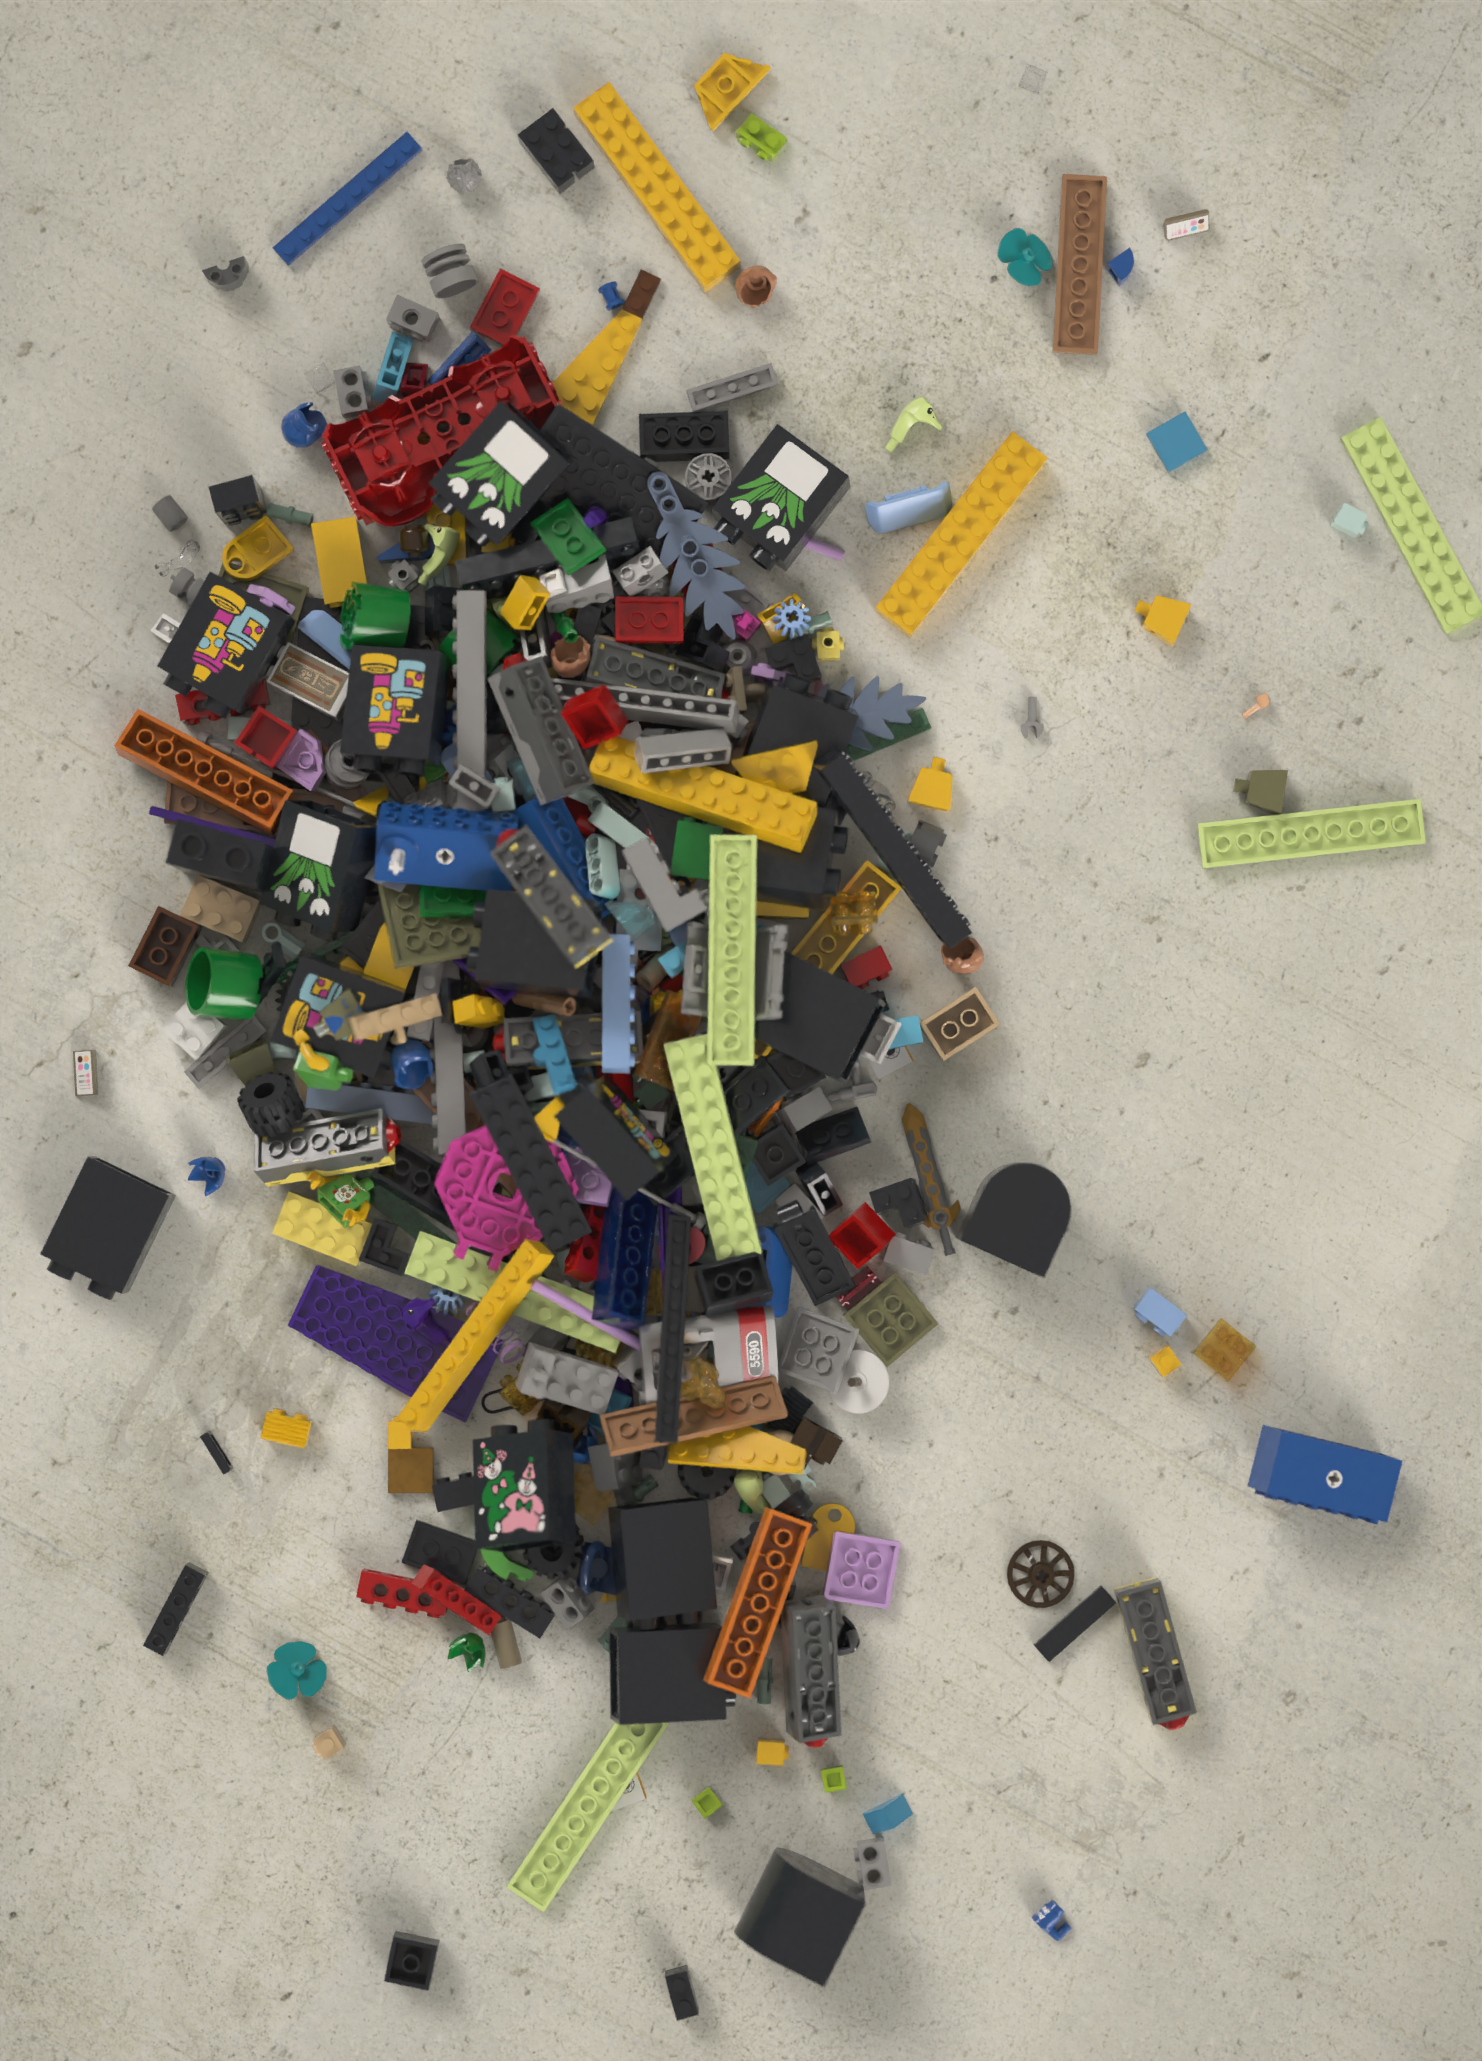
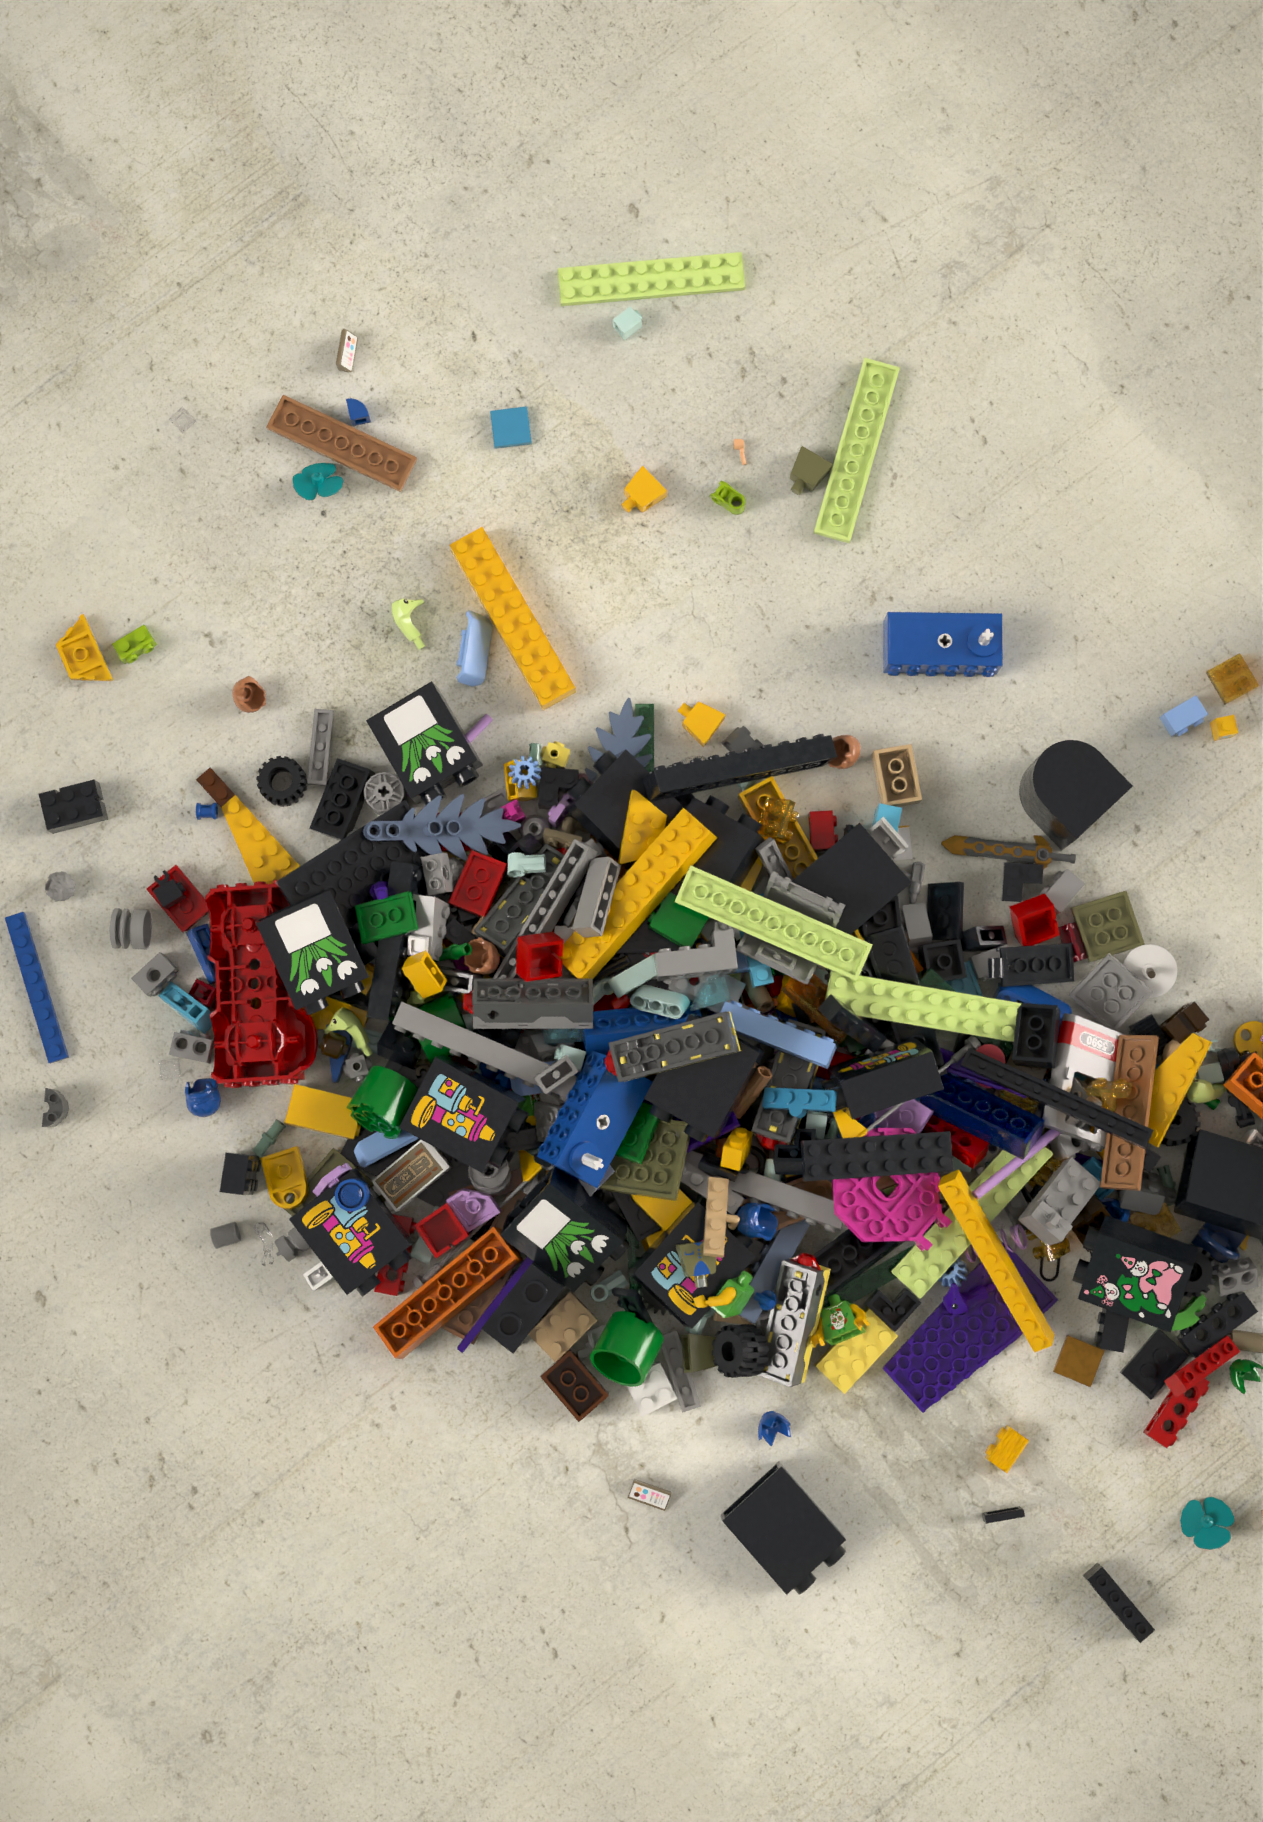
camera: 70 degrees left, 5 degrees down
(261, 626) = (352, 1194): none -> blue piece
(334, 1108) = (767, 1299): none -> blue plate
(399, 1435) = (1047, 1358): yellow brick -> none
(505, 294) = (169, 891): none -> black brick
(657, 187) = (136, 740): yellow brick -> none
(662, 1060) = (851, 1024): none -> black arch
(671, 344) = (274, 767): none -> black tyre
(689, 656) = (520, 864): none -> light aqua piece
(803, 926) = (772, 858): none -> light grey plate
(1032, 719) = (679, 624): light grey bar -> none
(1143, 1042) = (942, 643): none -> blue piece
(1196, 710) = (726, 495): none -> lime piece

